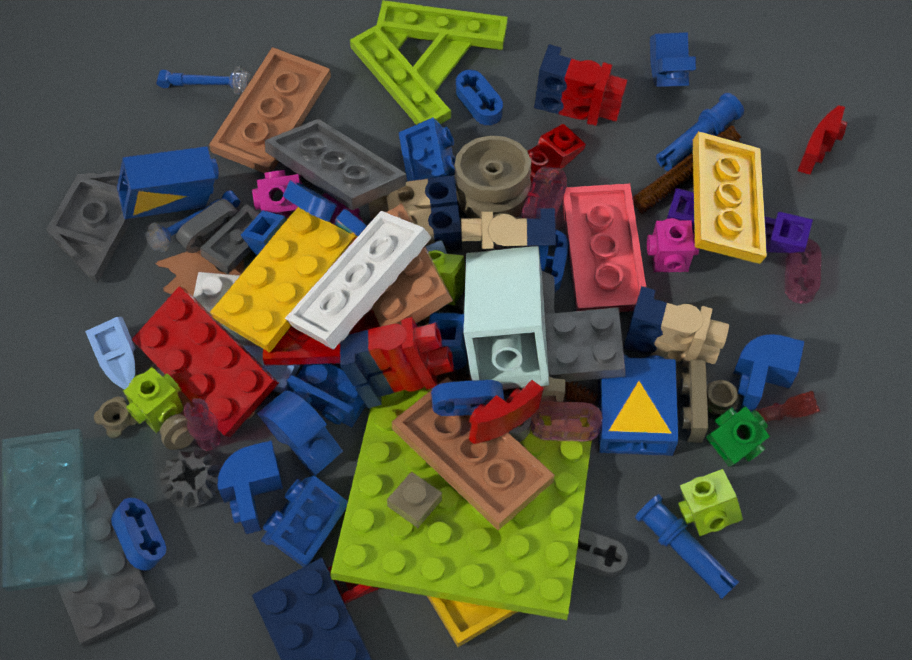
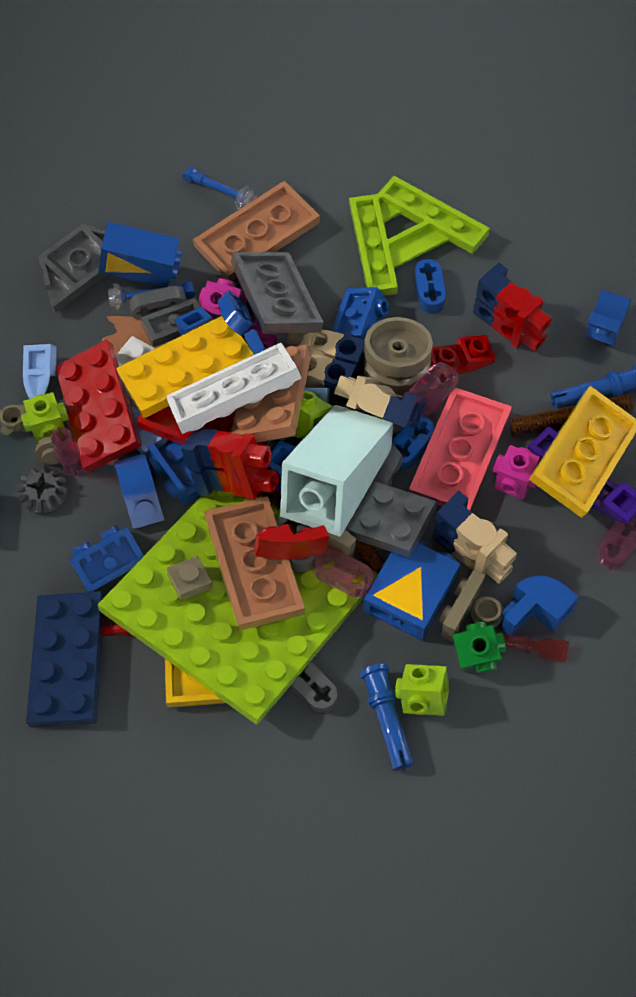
camera: 30 degrees right, 0 degrees up
(248, 474) = (79, 505): blue brick -> none
(464, 396) = (262, 514): blue beam -> none

